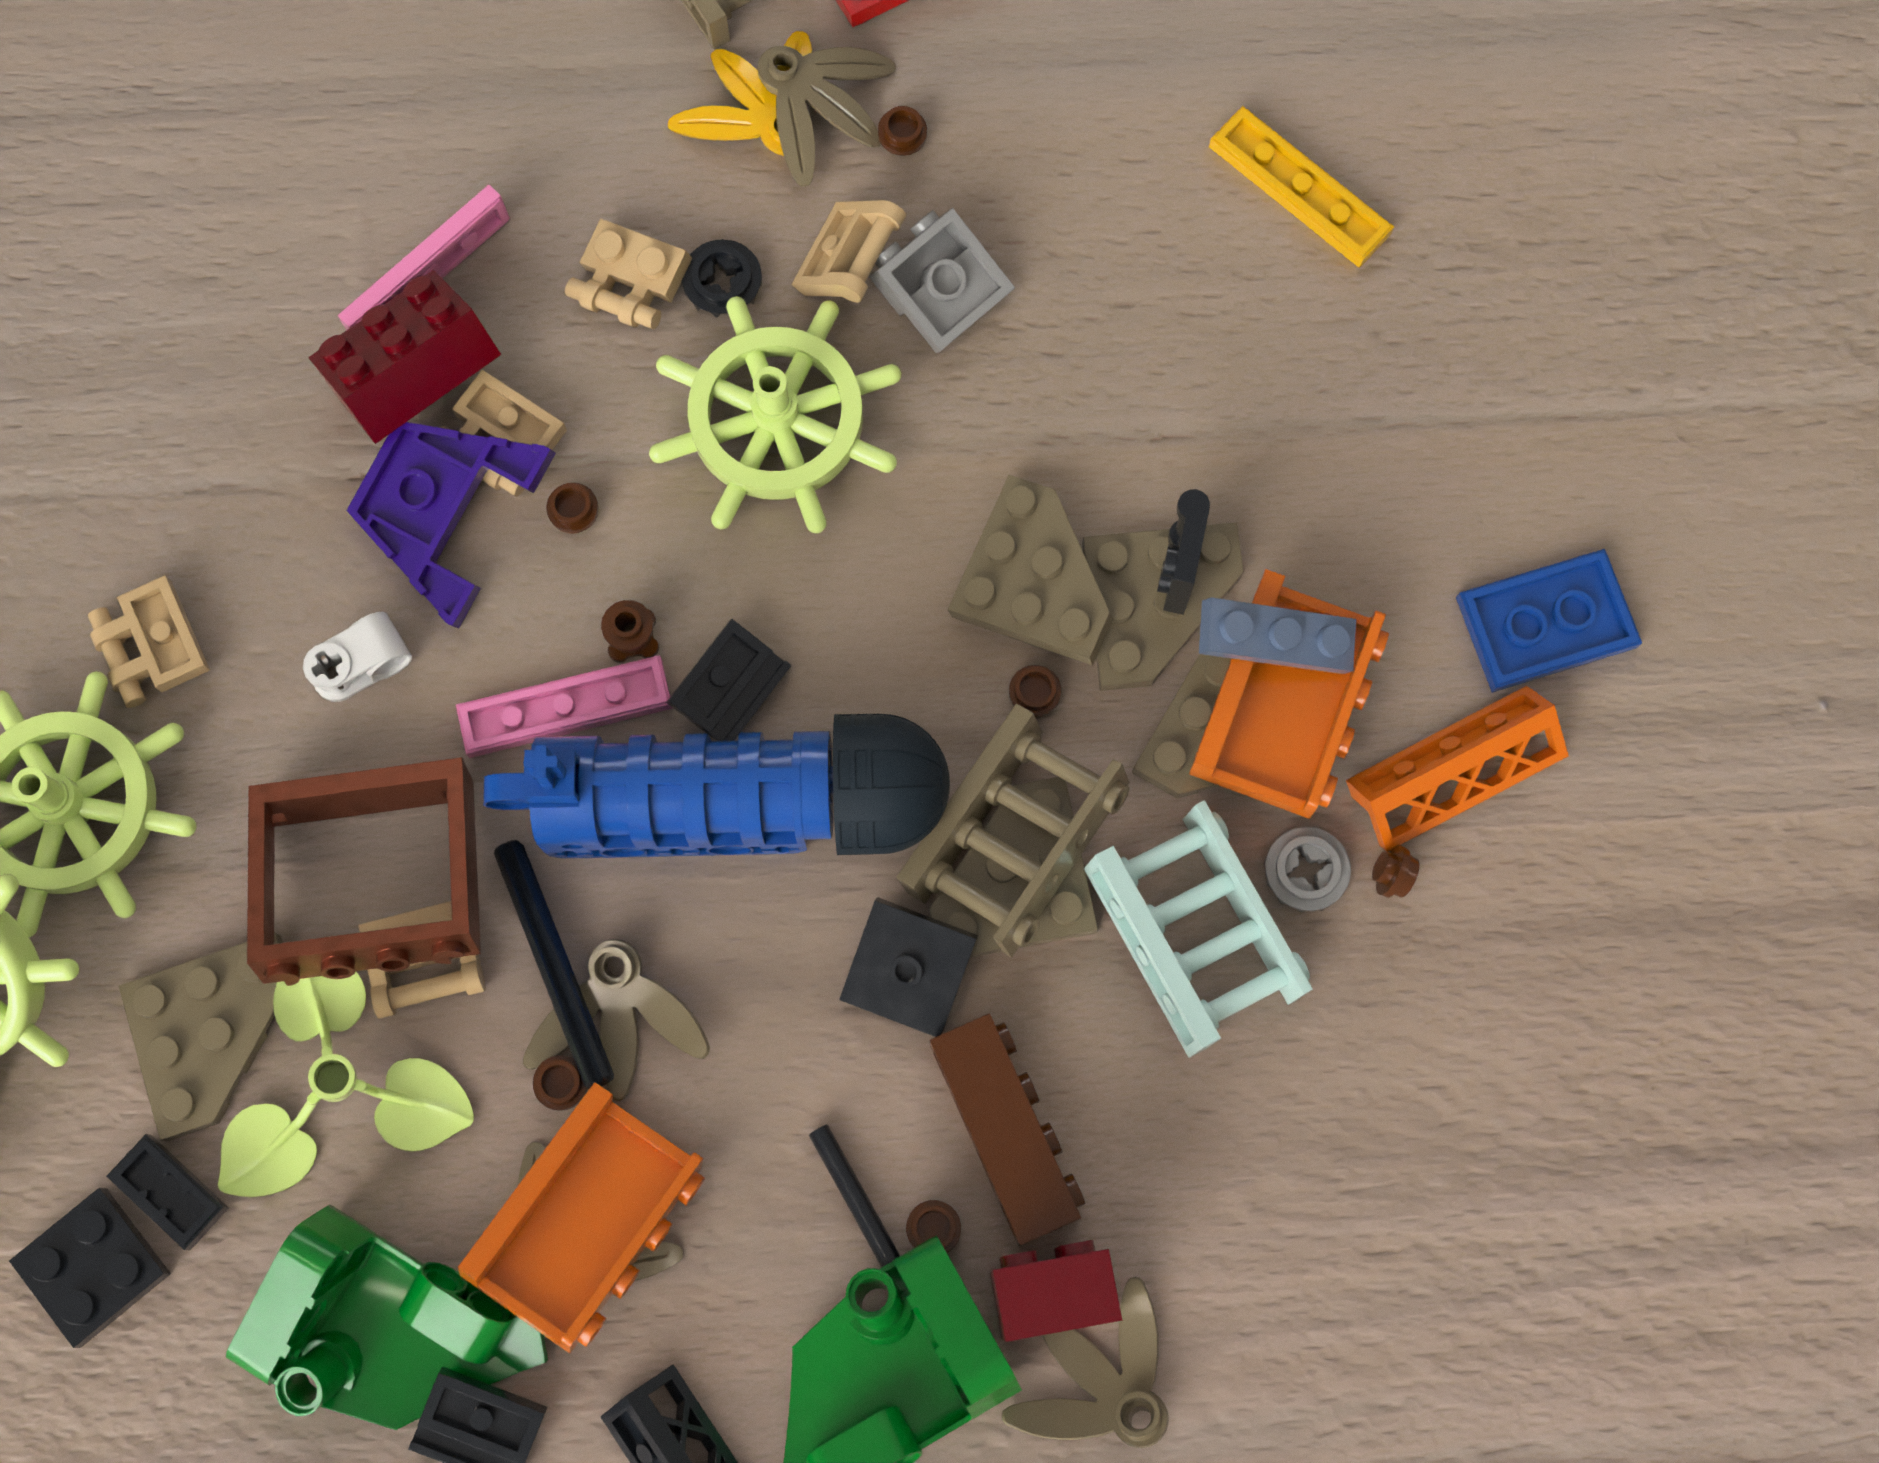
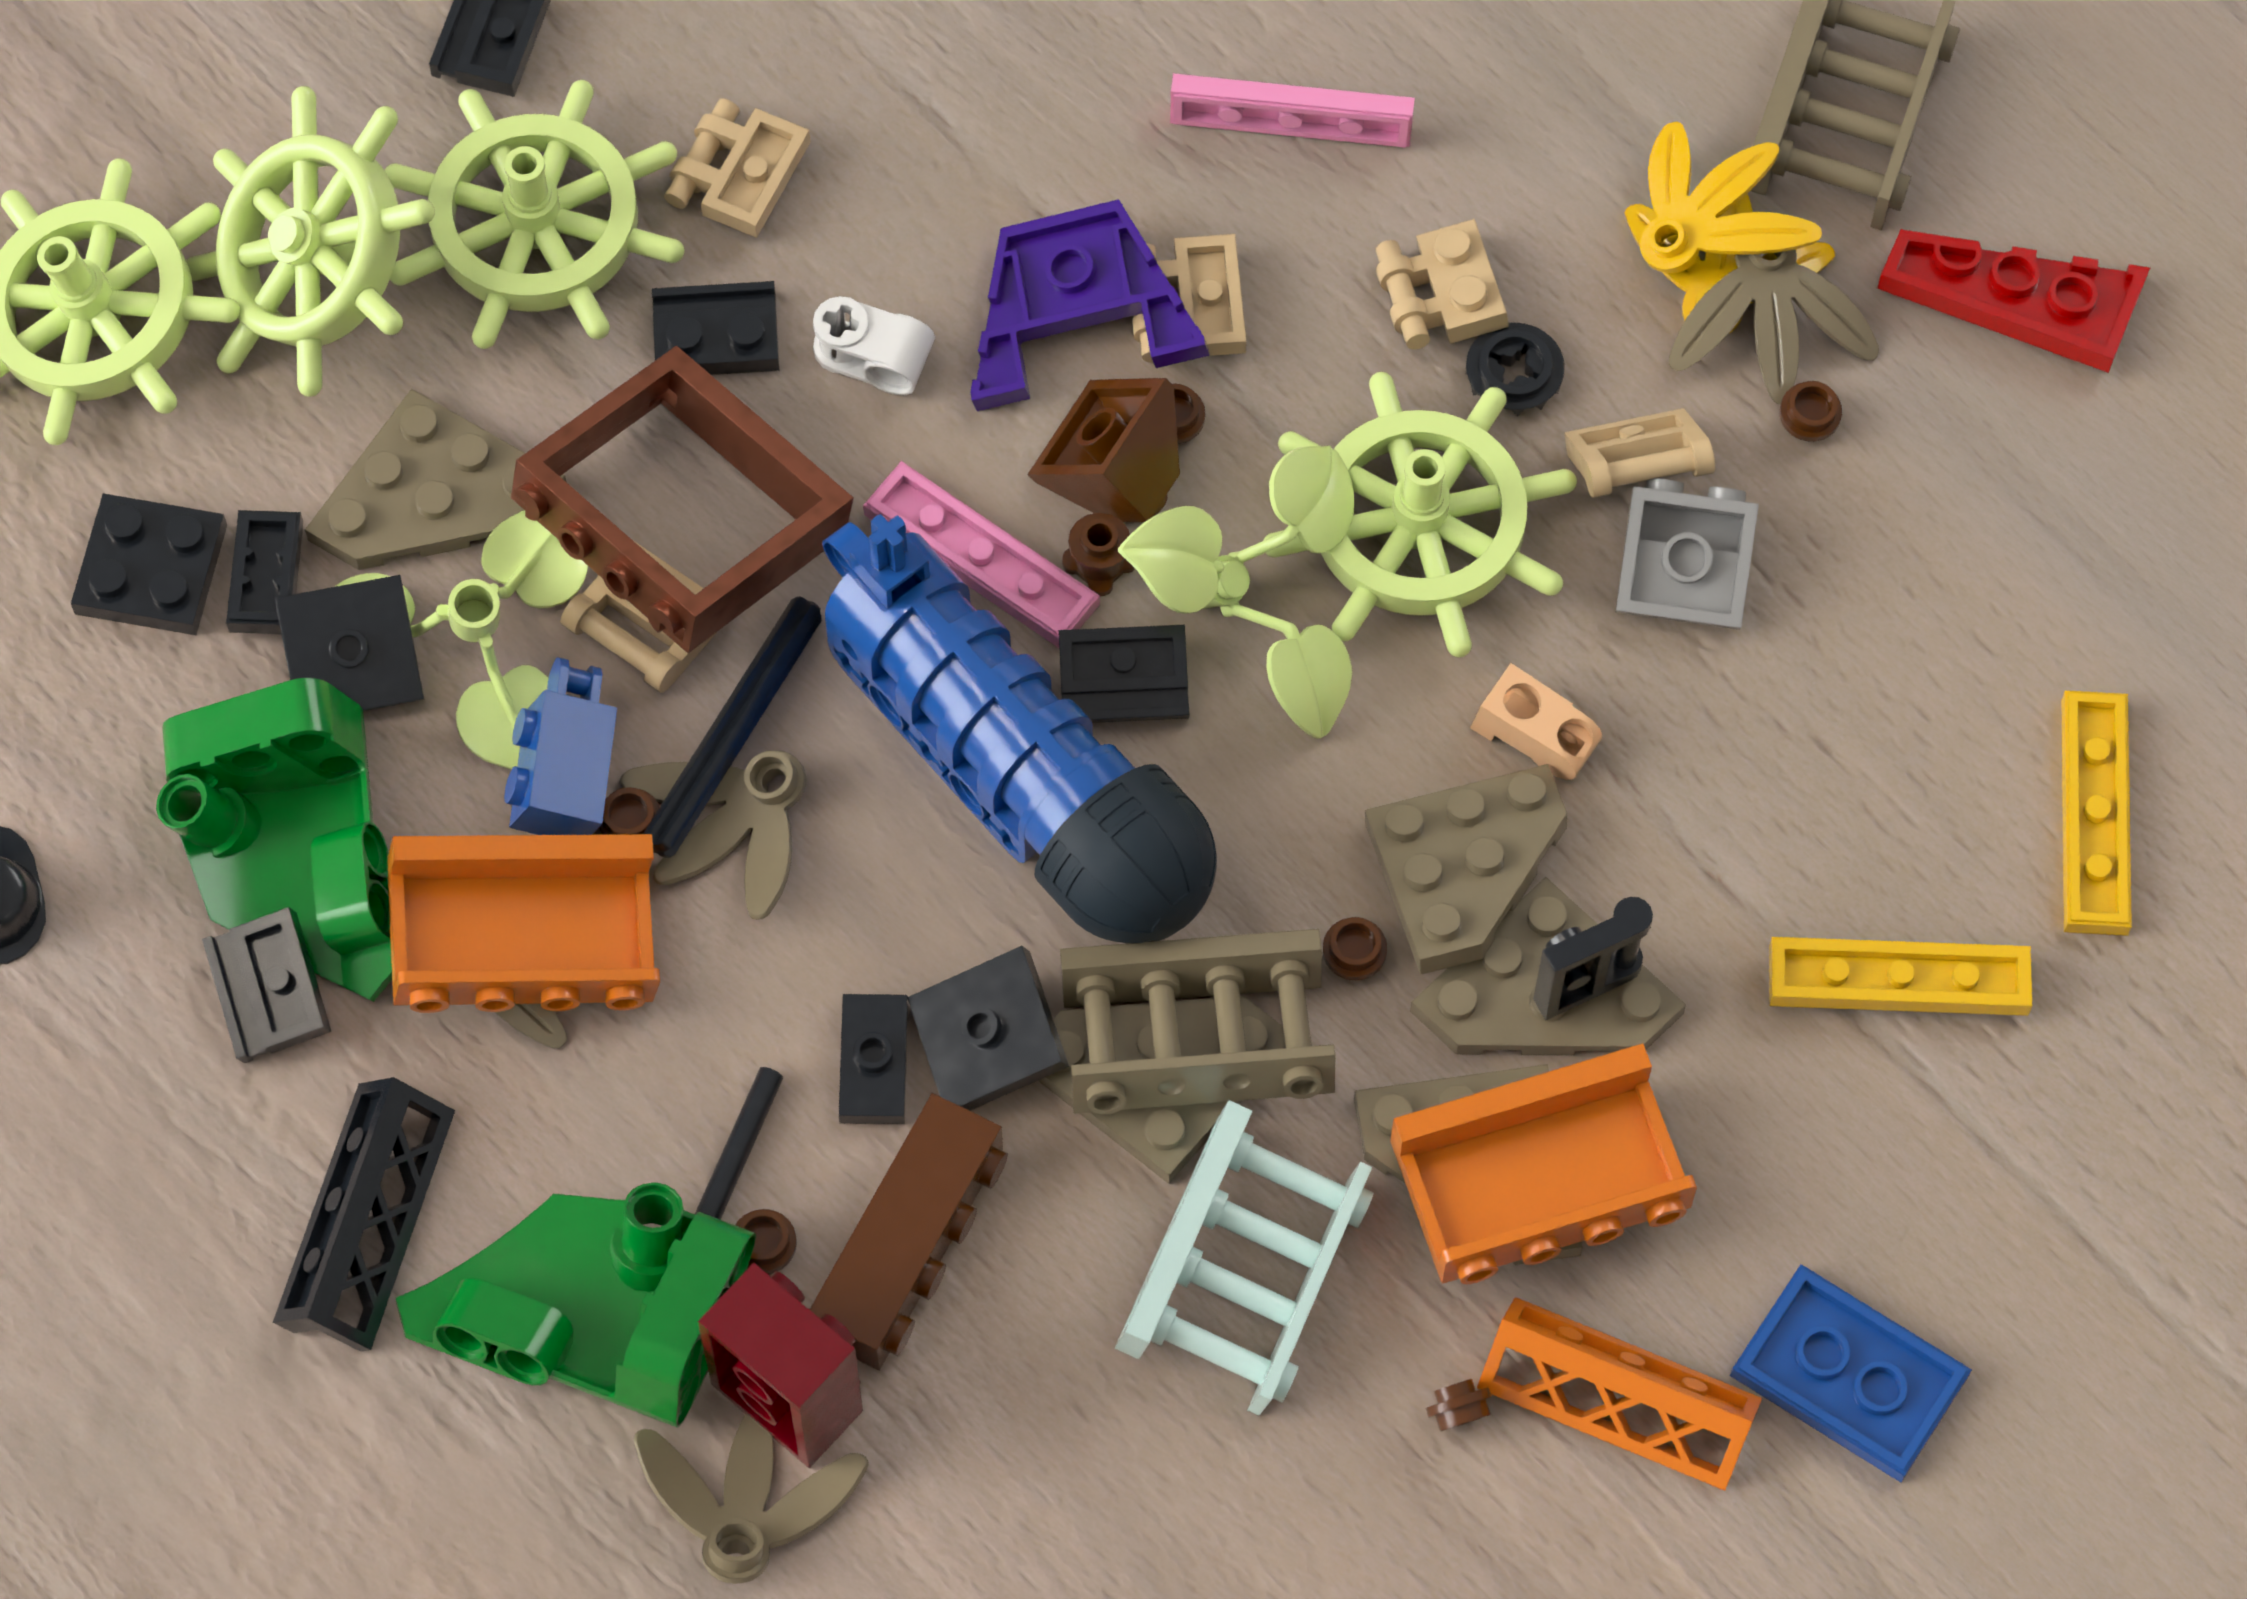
camera: 50 degrees right, 10 degrees down
(252, 746) = (719, 325): none -> black plate
(275, 1176) = (354, 640): none -> black plate
(404, 355) = (1184, 156): dark red brick -> none
(482, 1094) = (562, 756): none -> brick
(567, 563) = (1115, 449): none -> reddish brown slope
(710, 581) = (1183, 570): none -> yellowish green plant
(721, 85) = (1697, 215): none -> yellow plant
(862, 1054) = (873, 1059): none -> black plate
(976, 459) = (1537, 723): none -> light nougat leg
(1277, 636) = (1583, 1100): sand blue plate -> none
(1316, 847) = (1384, 1297): light grey gear -> none
(1319, 383) = (1900, 976): none -> yellow plate

